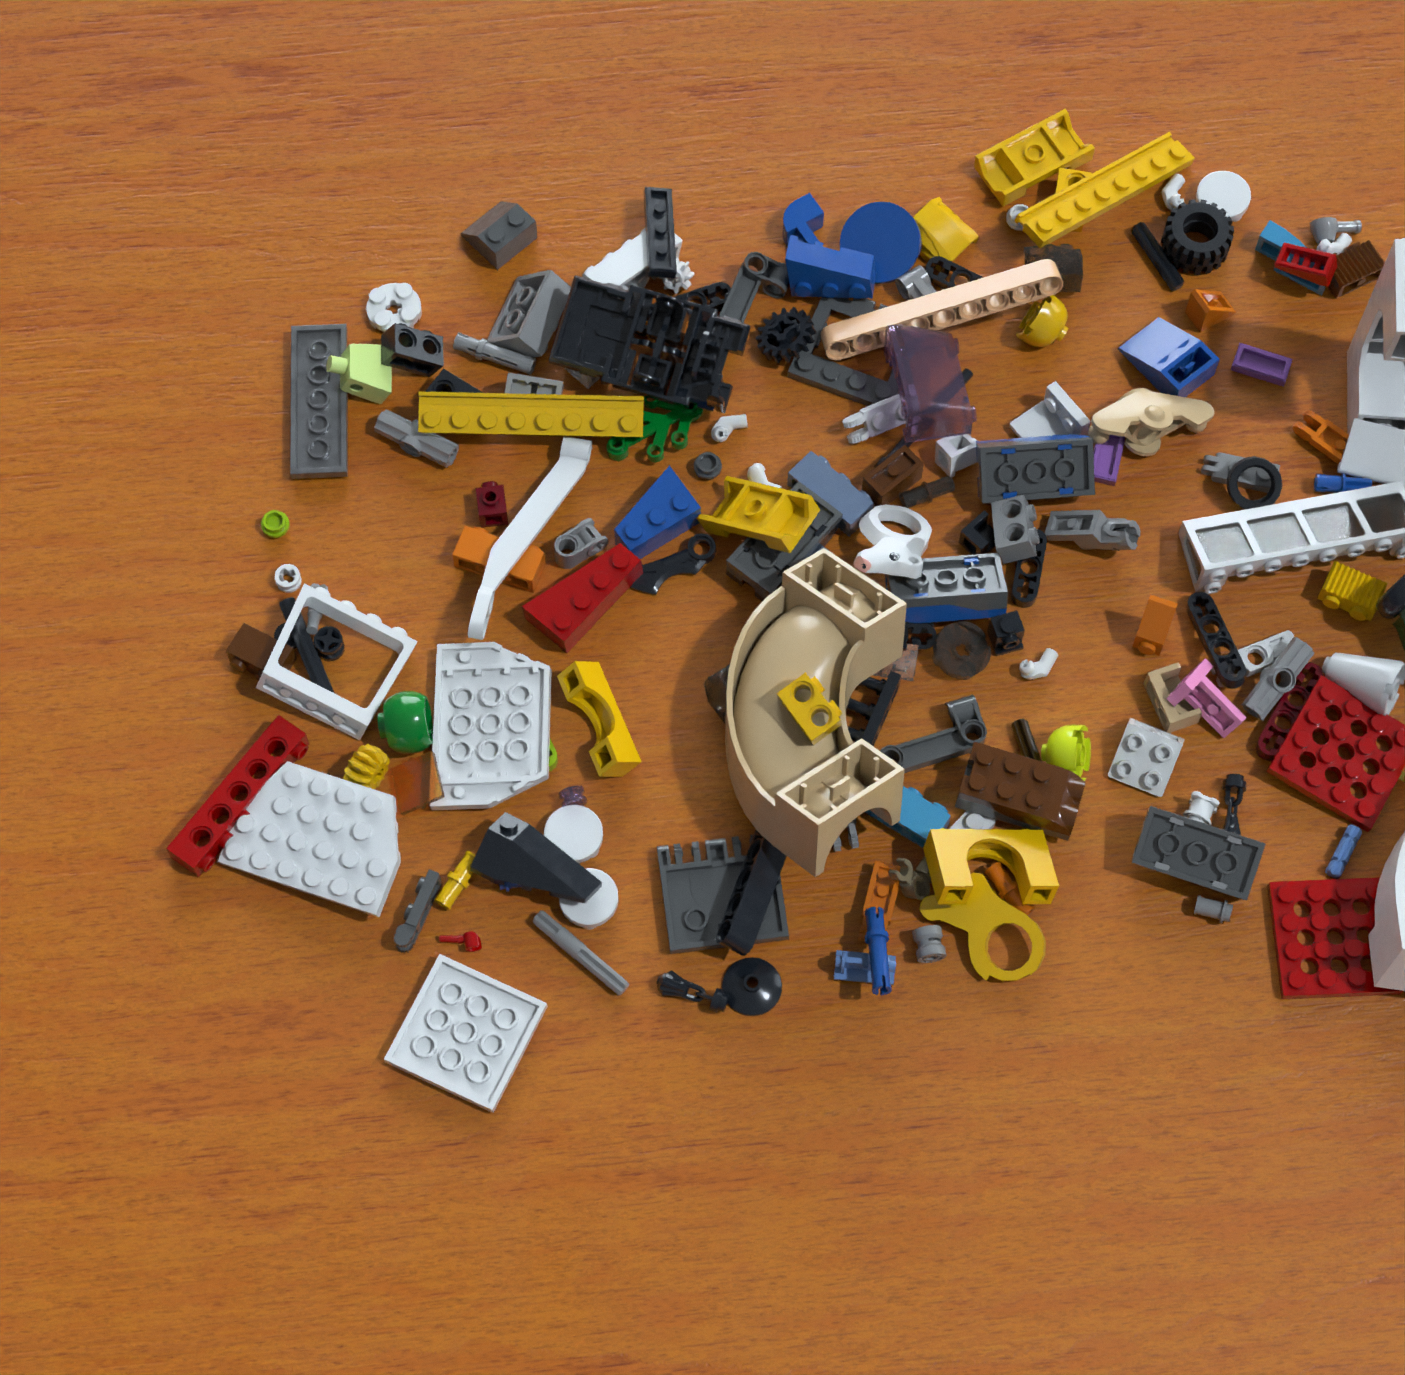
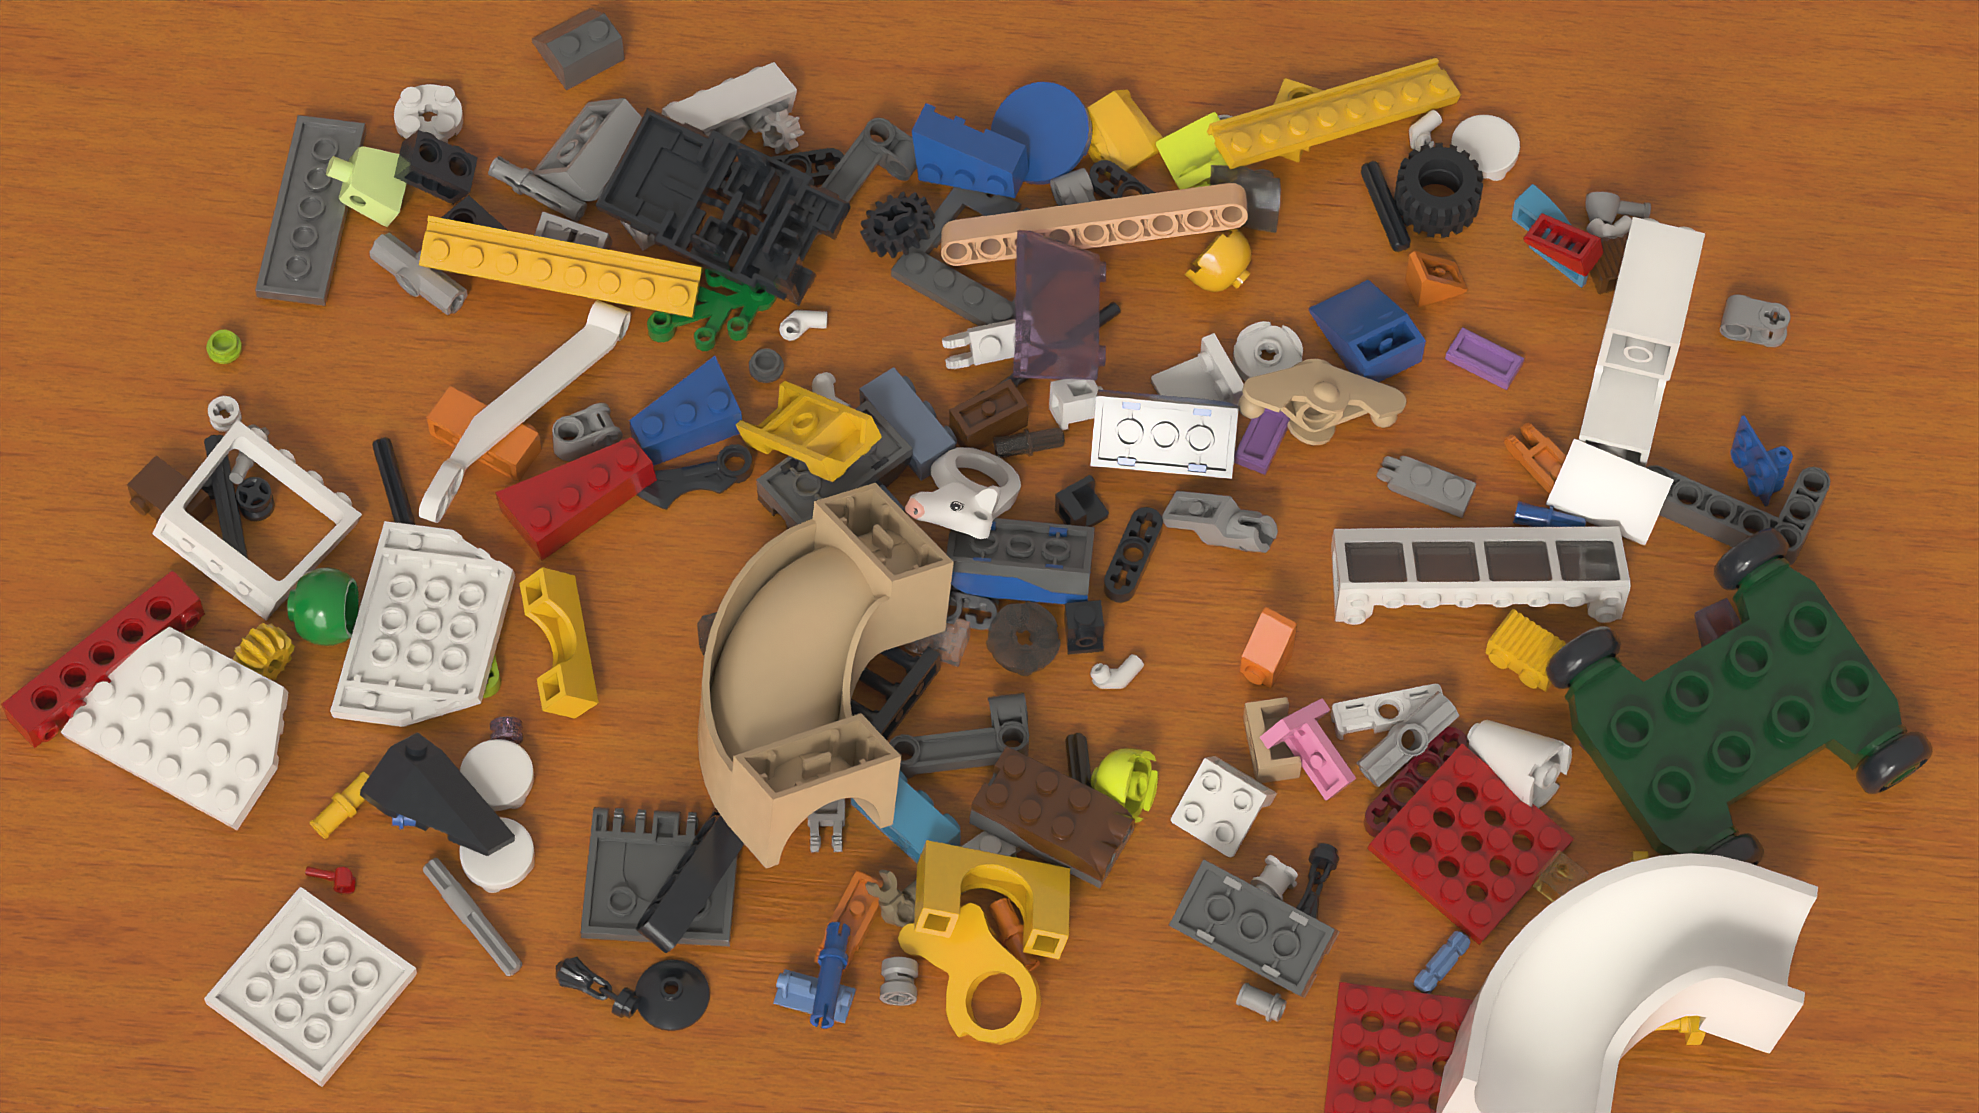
camera: 10 degrees right, 5 degrees down
(417, 783) = (322, 681): clear orange piece -> none
(417, 913) = (286, 834): dark grey hinge -> none
(435, 610) = (392, 481): none -> black axle
(491, 504) = (490, 368): dark red brick -> none
(660, 232) = (770, 75): black tile -> none
(802, 219) = (953, 89): blue brick -> none
(804, 711) = (800, 668): yellow brick -> none
(1003, 240) = (1191, 153): none -> neon yellow bracket
(1014, 528) = (1122, 503): light grey brick -> none
(1032, 157) = (1256, 60): yellow piece -> none
(1095, 376) = (1266, 337): none -> white plate
(1213, 640) = (1343, 679): black beam -> none
(1249, 462) = (1443, 473): black tyre -> none

